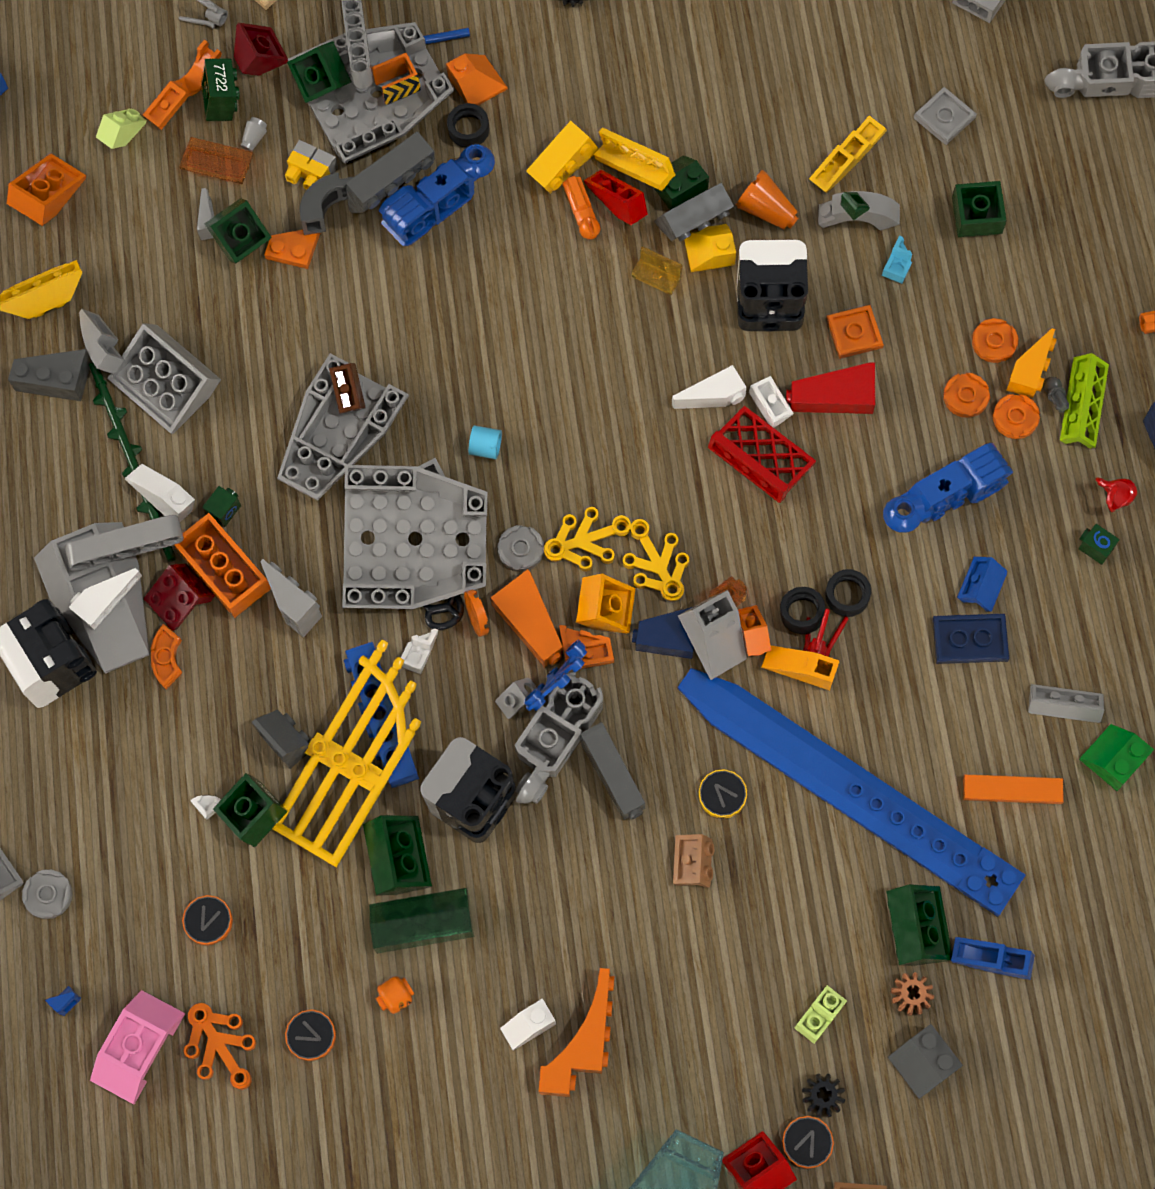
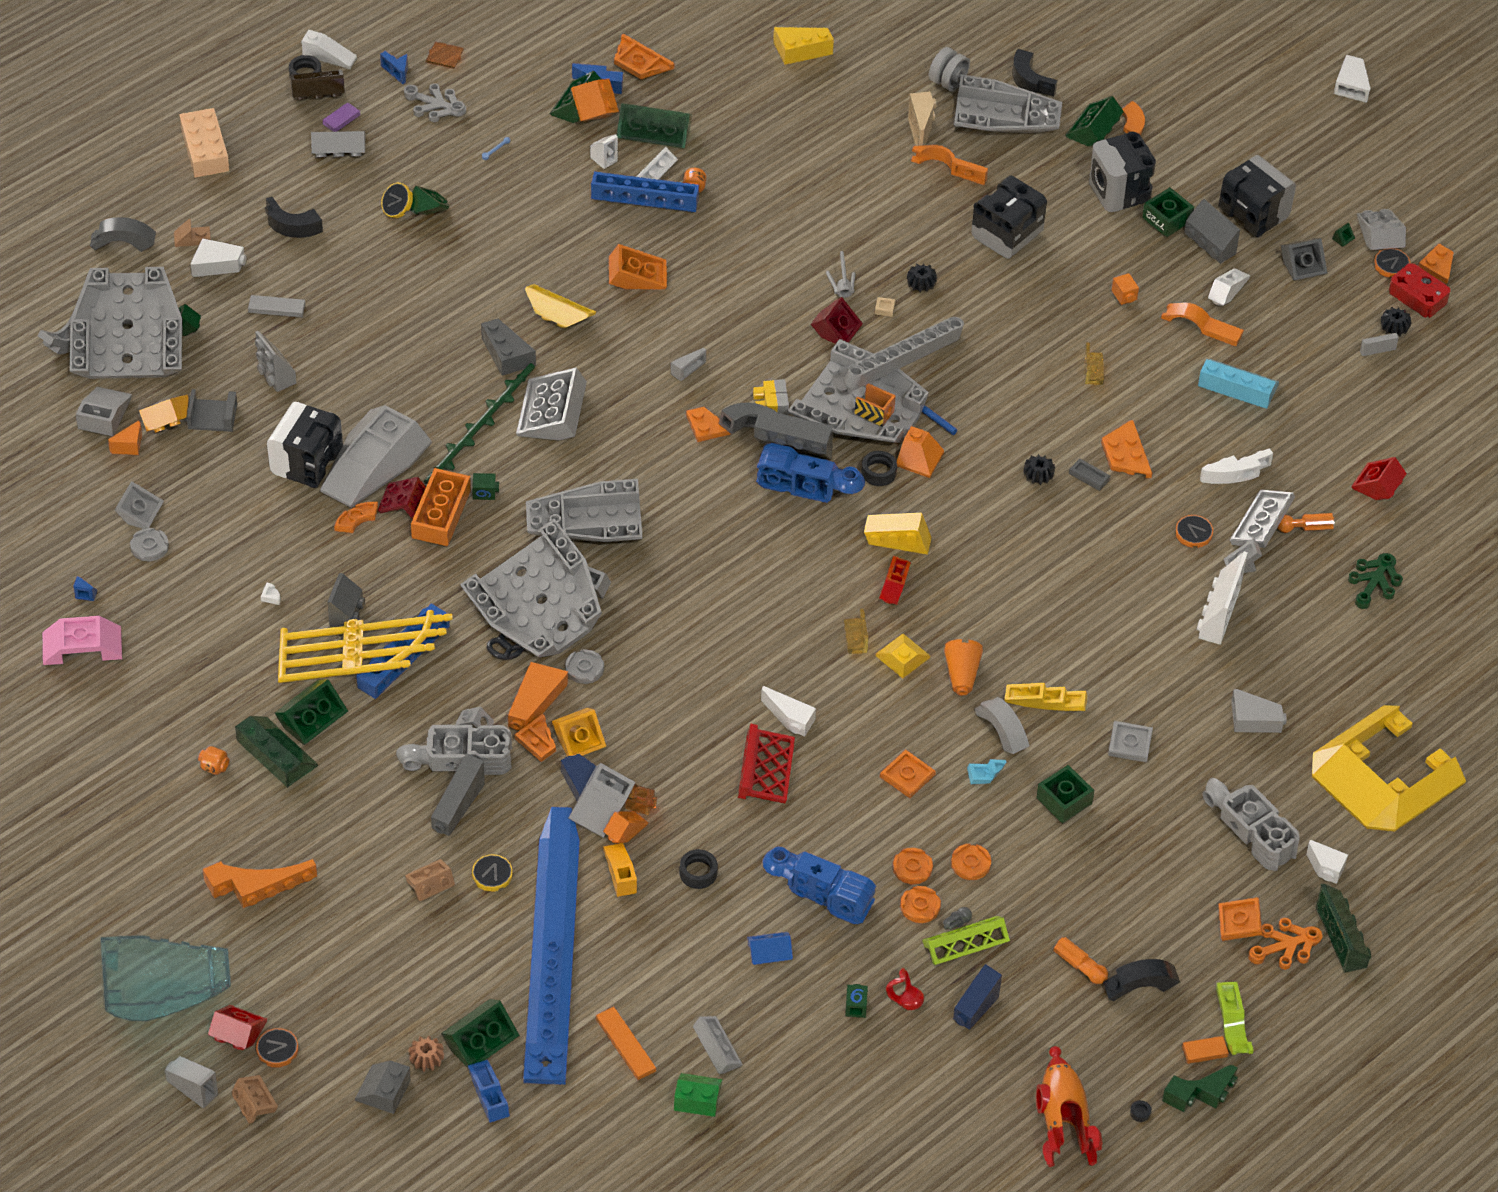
camera: 50 degrees right, 20 degrees down
(99, 342) = (548, 357): light grey slope -> none
(100, 599) = (362, 450): white slope -> none
(120, 127) = (714, 283): yellowish green slope -> none
(124, 542) = (412, 440): light grey beam -> none
(161, 492) = (466, 449): white slope -> none
(178, 91) = (767, 298): orange piece -> none
(207, 920) = (192, 636): black tile -> none
(216, 160) = (735, 348): clear orange piece -> none
(217, 1042) = (113, 685): orange plant -> none
(219, 89) = (784, 316): dark green brick -> none
(238, 230) = (688, 383): dark green brick -> none
(250, 810) = (281, 612): dark green brick -> none
(253, 133) = (771, 356): light grey cone -> none
(297, 607) = (443, 554): light grey slope -> none
(310, 1035) = (154, 732): black tile -> none
(319, 71) = (839, 356): dark green slope -> none
(347, 388) = (620, 502): reddish brown slope -> none
(418, 651) = (465, 649): white slope -> none
(469, 789) = (381, 716): black piece -> none
(476, 612) = (513, 660): orange tile -> none
(485, 442) = (644, 602): medium azure piece -> none
(528, 1024) = (248, 845): white slope -> none
(557, 677) = (473, 718): blue plant -> none
(581, 207) = (870, 564): orange piece -> none
(584, 539) = (601, 686): yellow plant -> none
(634, 160) = (927, 571): yellow fence -> none
(657, 564) = (635, 749): yellow plant -> none
(687, 183) = (937, 611): dark green slope -> none
(695, 213) = (917, 626): dark grey slope -> none
(770, 401) = (809, 749): white slope -> none
(772, 285) = (893, 695): black piece -> none
(797, 594) = (660, 858): black tyre -> none
(817, 644) = (642, 871): red plant -> none
(820, 1014) = (376, 1011): yellowish green slope -> none
(827, 1088) = (315, 1037): black gear -> none
(836, 391) = (849, 784): red slope -> none
(853, 204) = (996, 707): dark green slope -> none
(970, 638) = (722, 962): dark blue tile -> none
(1028, 368) = (967, 890): light orange slope -> none

